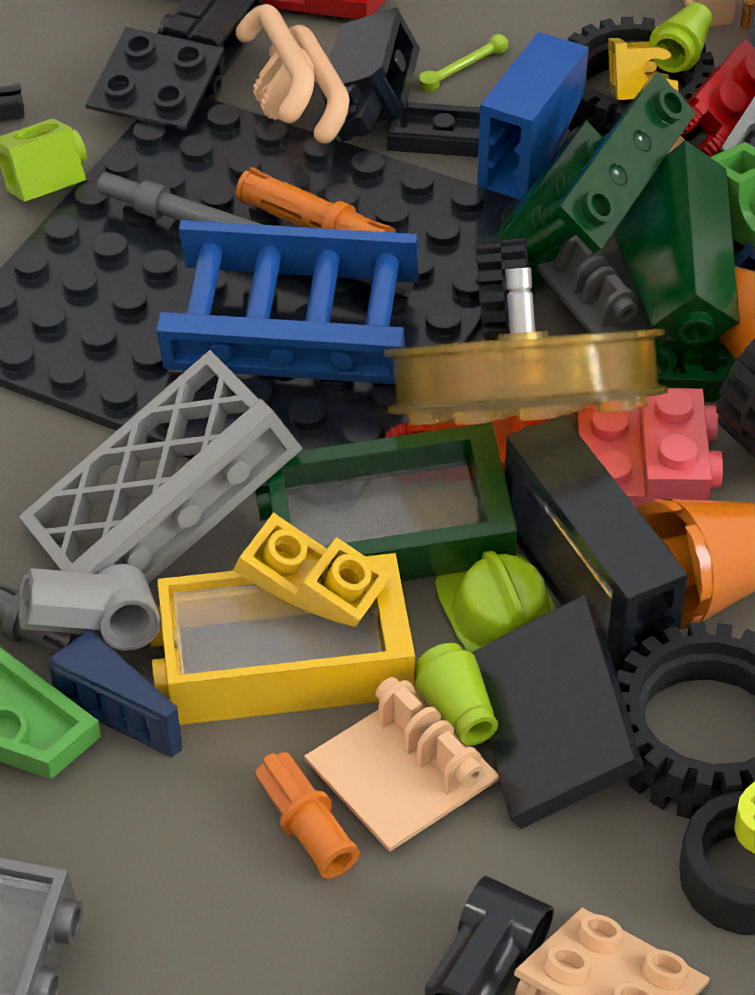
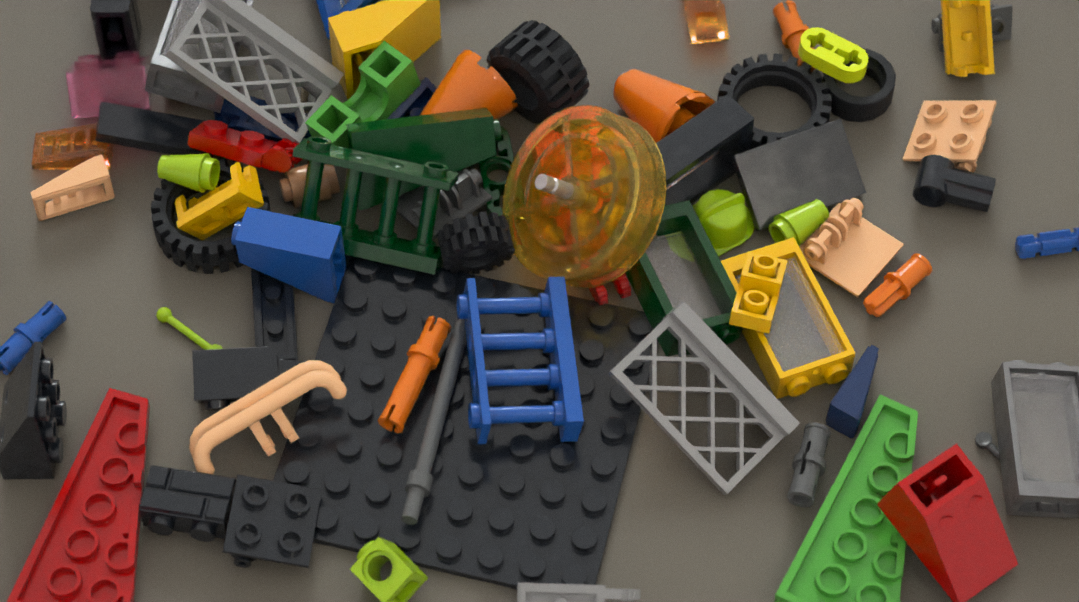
camera: 105 degrees left, 10 degrees up
(91, 603) = (811, 406): light grey piece -> none

